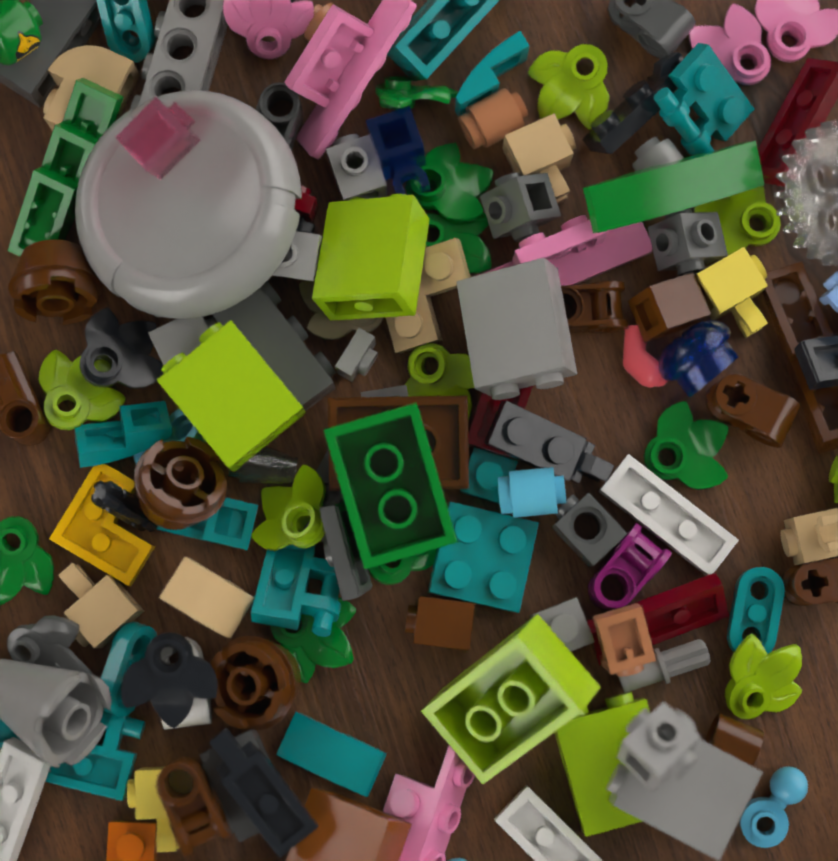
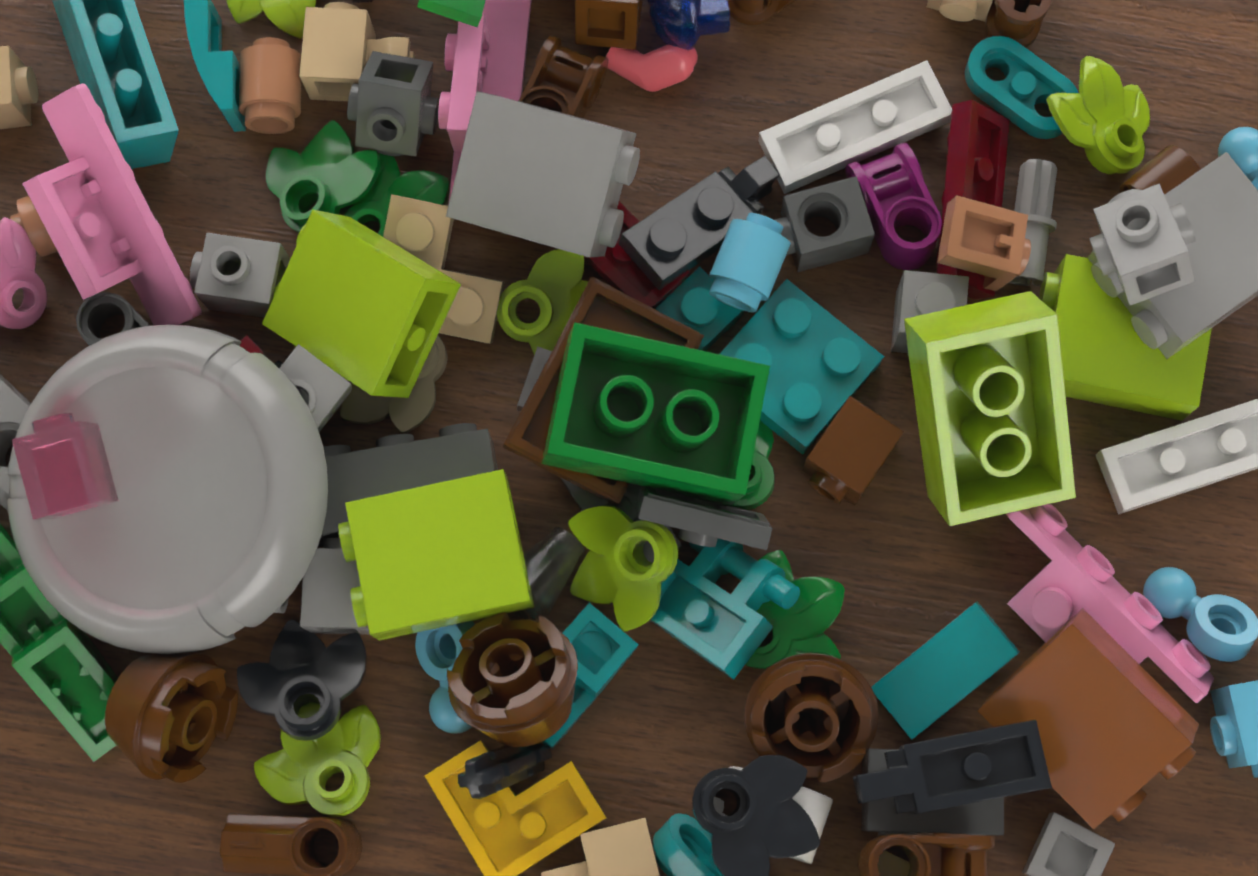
camera: 55 degrees left, 5 degrees down
(135, 432) = (415, 711): teal slope -> none
(207, 597) = (676, 714): tan brick -> none
(357, 356) = (470, 387): light grey plate -> none
(399, 93) = (177, 178): green plate -> none
(399, 148) = (244, 204): clear blue brick -> none
(692, 447) = (786, 63): green plate -> none

